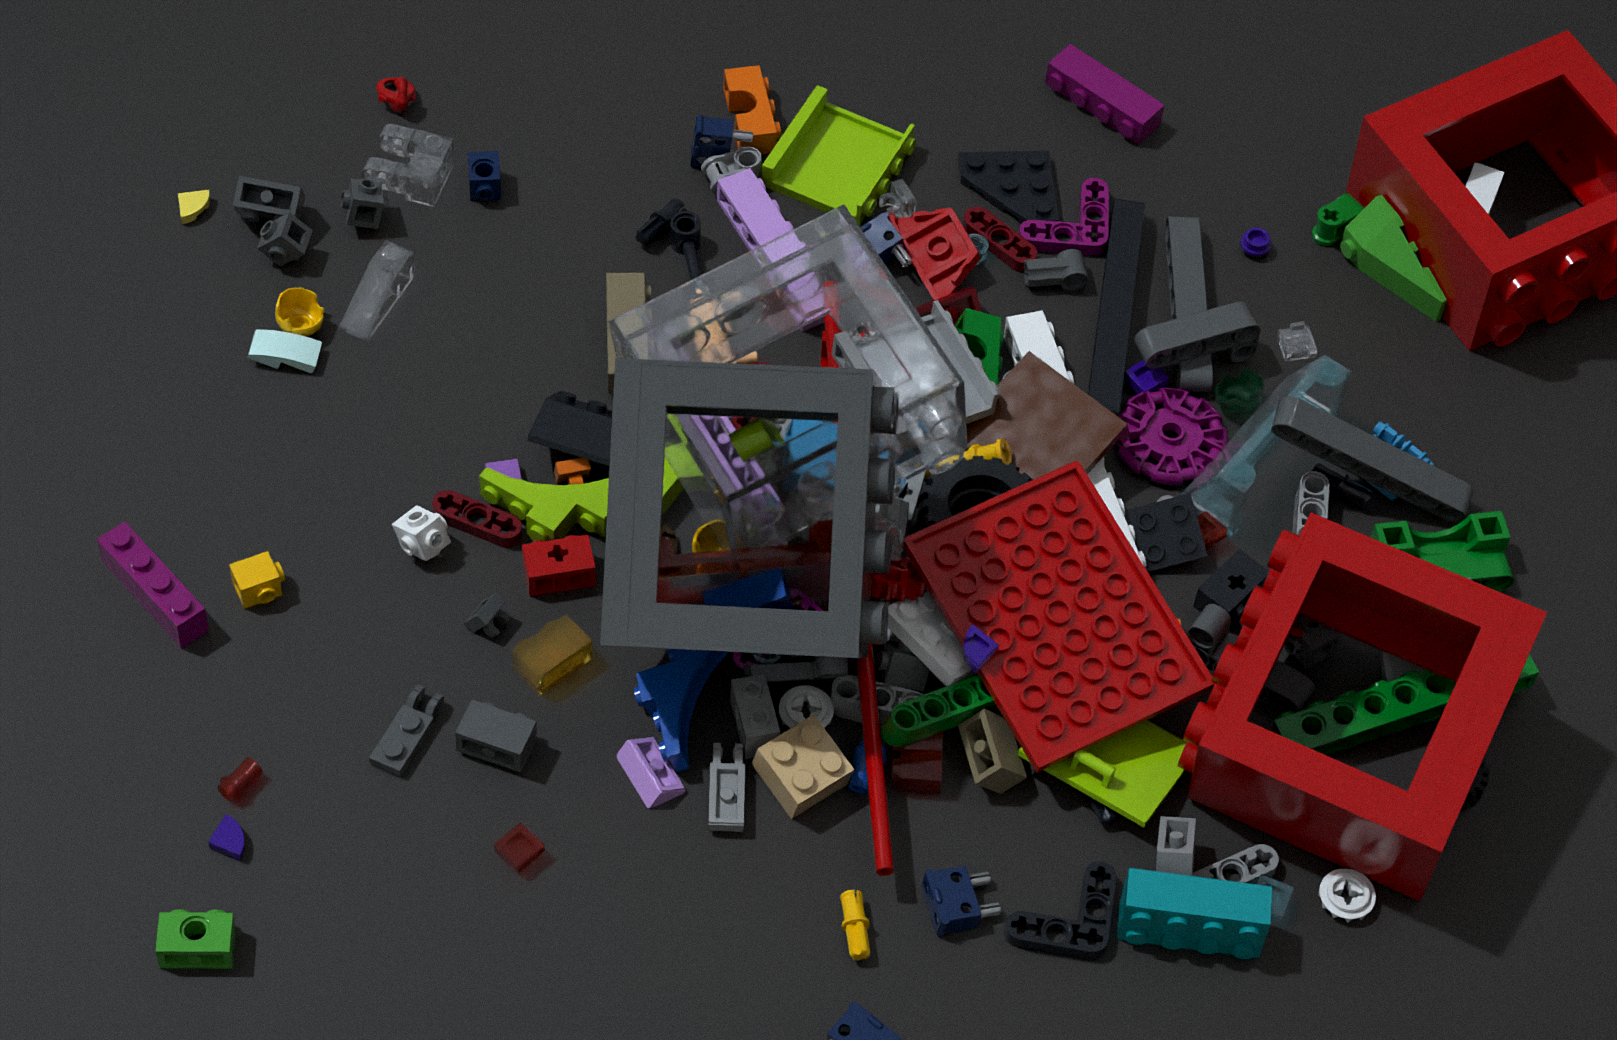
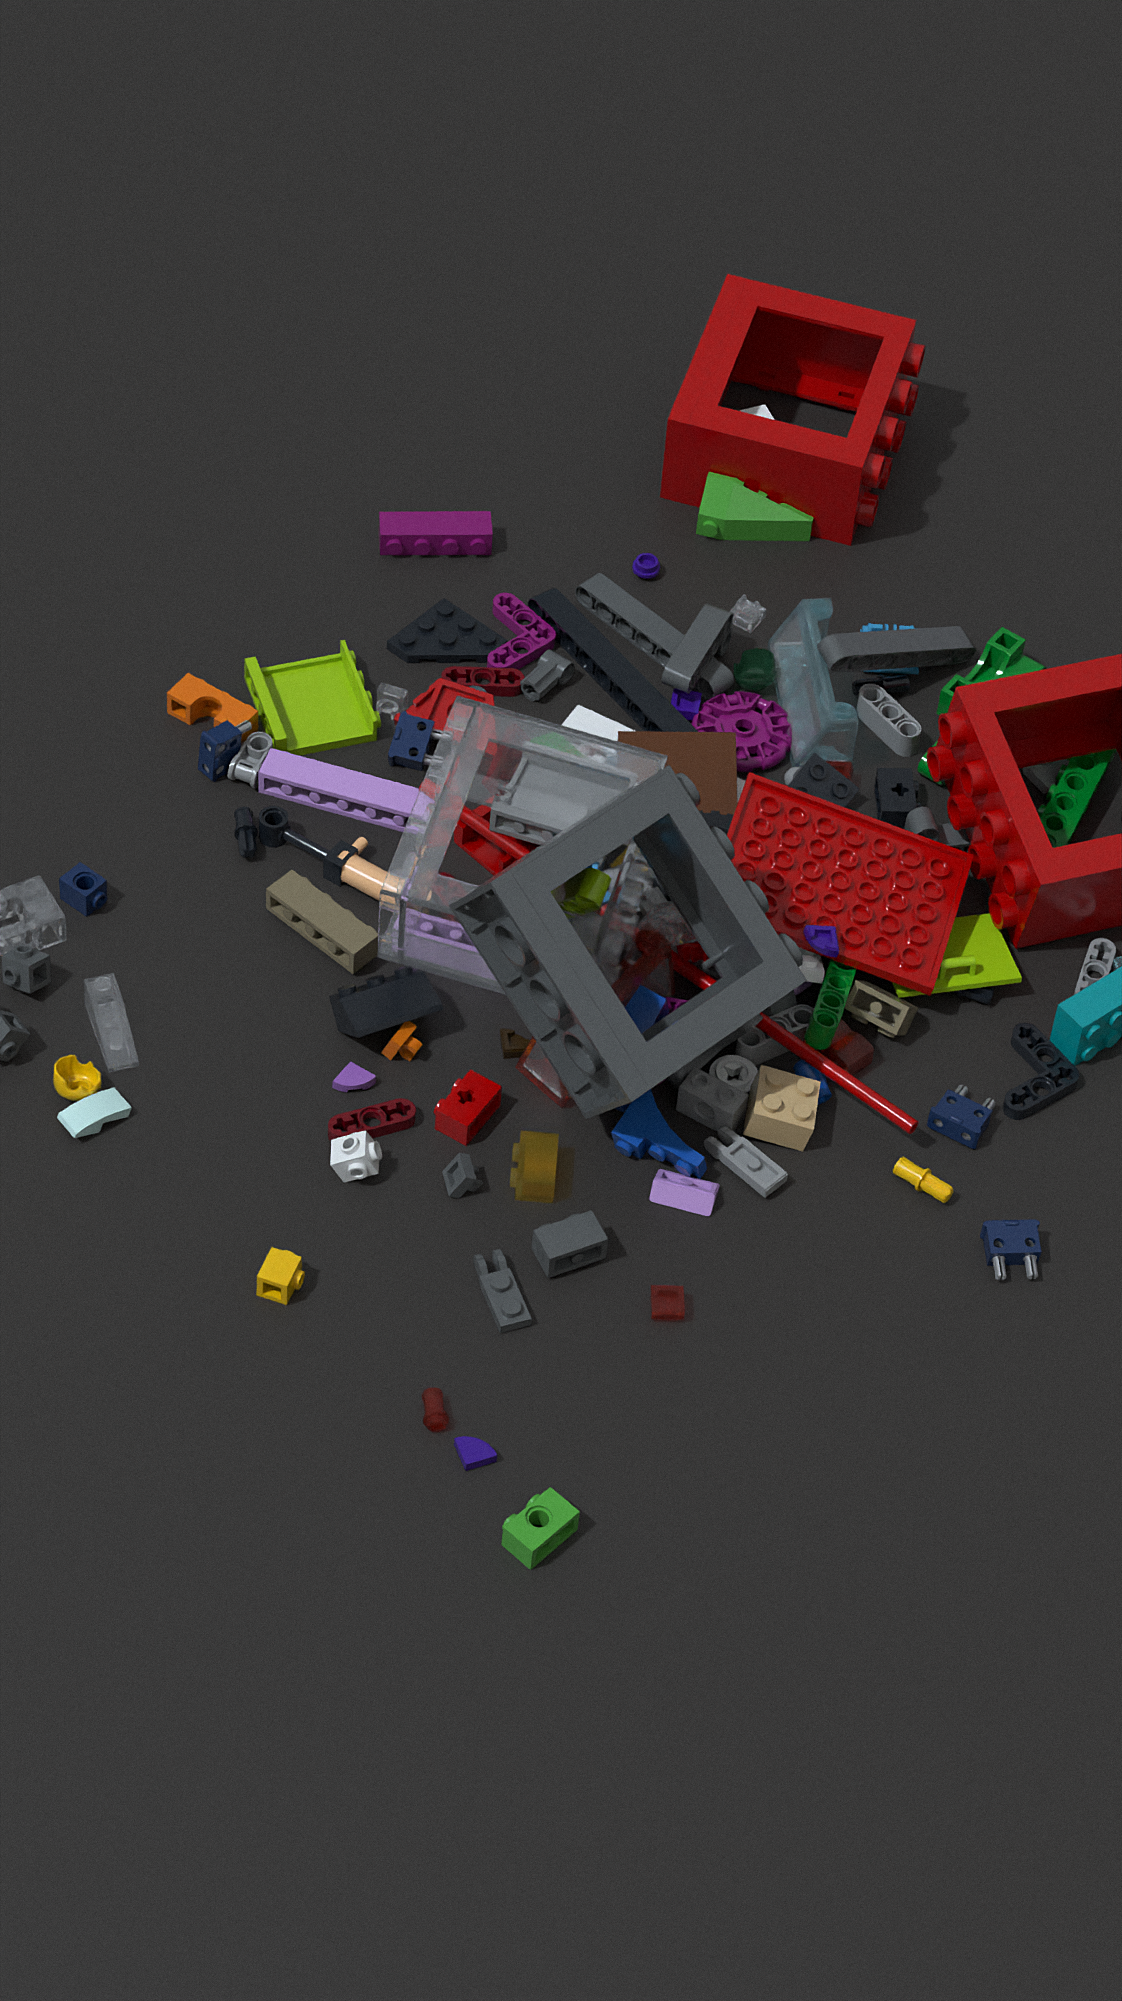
camera: 45 degrees left, 5 degrees down
(153, 585) = (214, 1334): magenta brick -> none
(555, 509) = (442, 1052): lime arch -> none
(1176, 845) = (1057, 977): light grey brick -> none
(1334, 218) = (681, 514): green piece -> none

